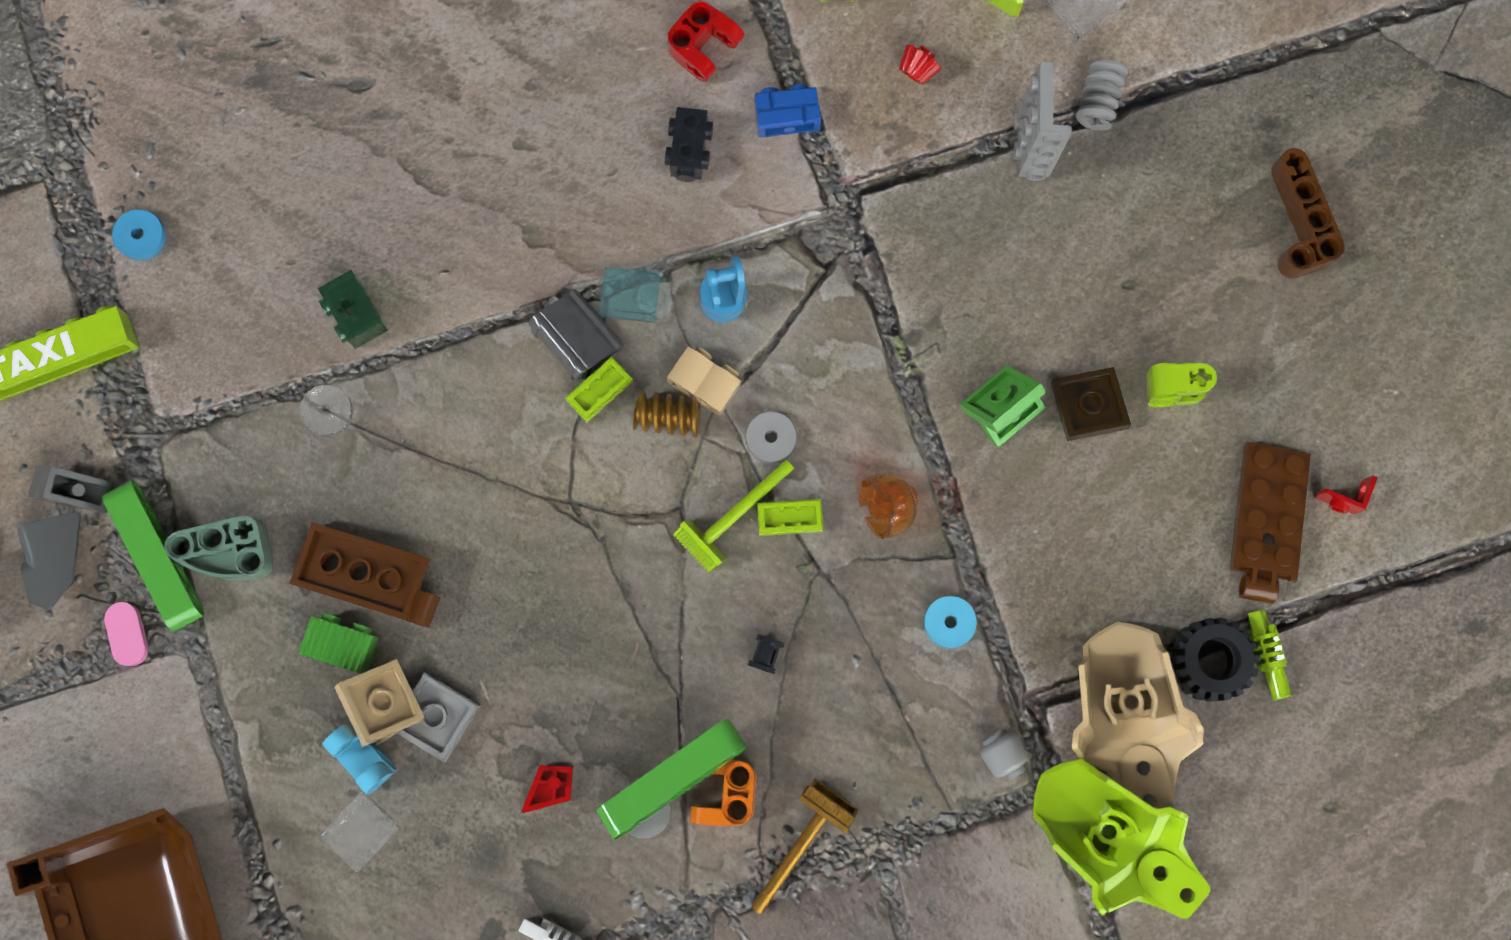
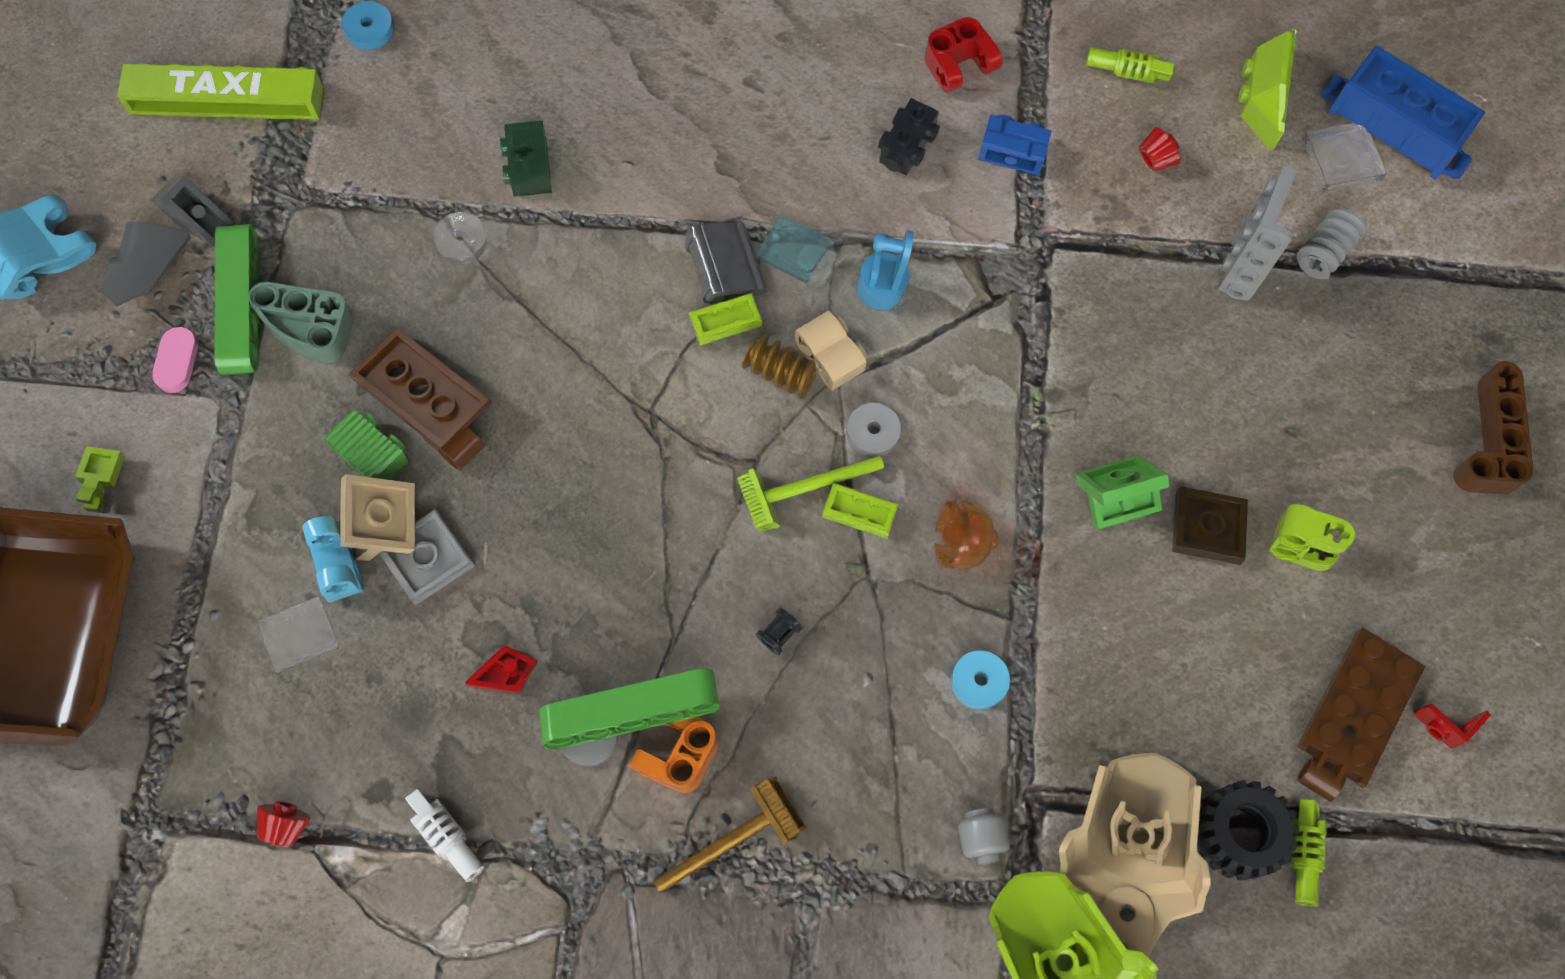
camera: 20 degrees right, 10 degrees down
(110, 764) = (97, 469): none -> lime plate

